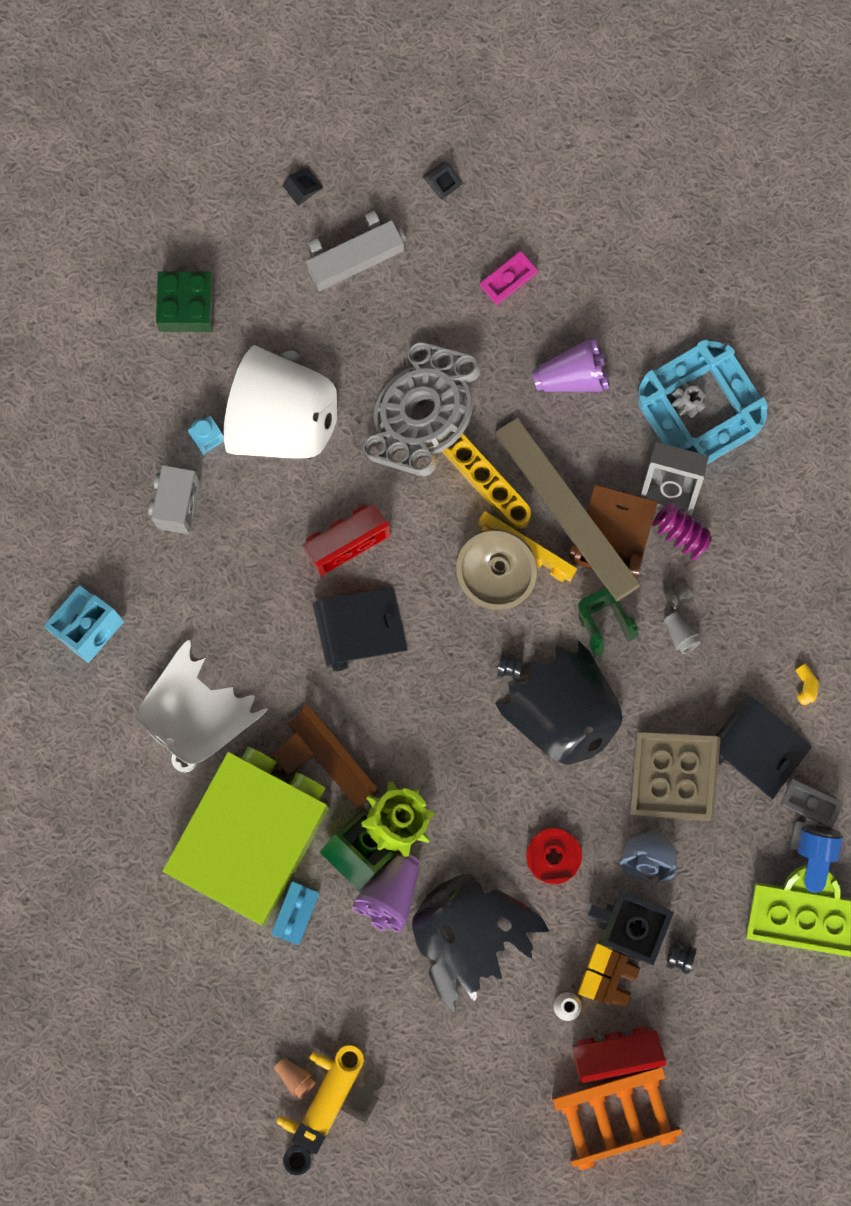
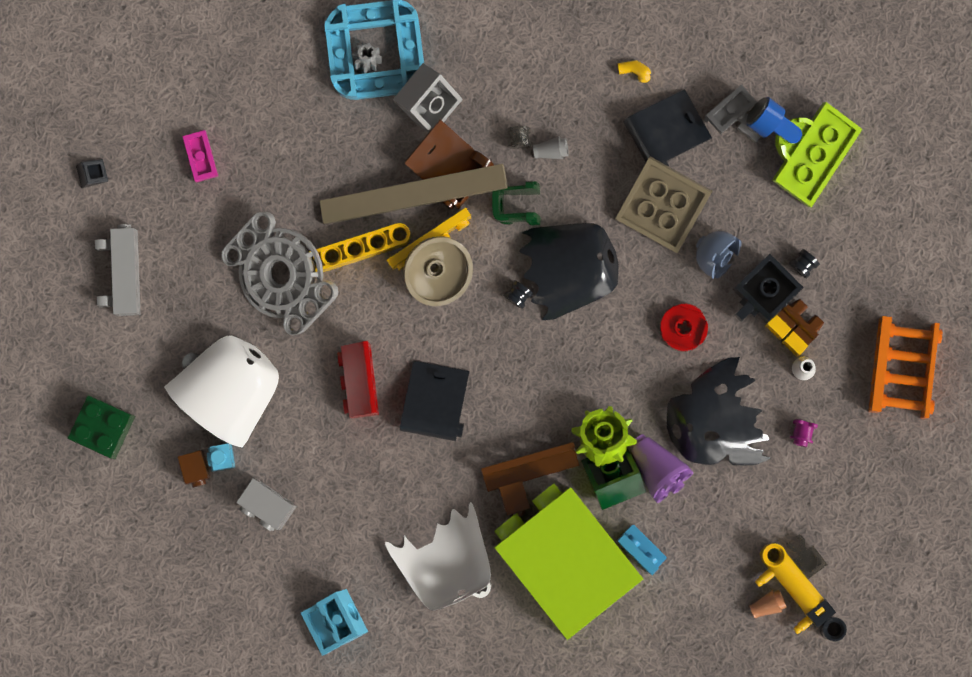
camera: 65 degrees left, 5 degrees up
(182, 412) = (194, 468): none -> reddish brown brick
(302, 186) = (44, 289): black slope -> none
(496, 1035) = (803, 432): none -> magenta brick
(574, 370) = (302, 138): medium lavender cone -> none
(618, 1054) = (859, 345): red slope -> none
(683, 529) = (471, 110): magenta piece -> none

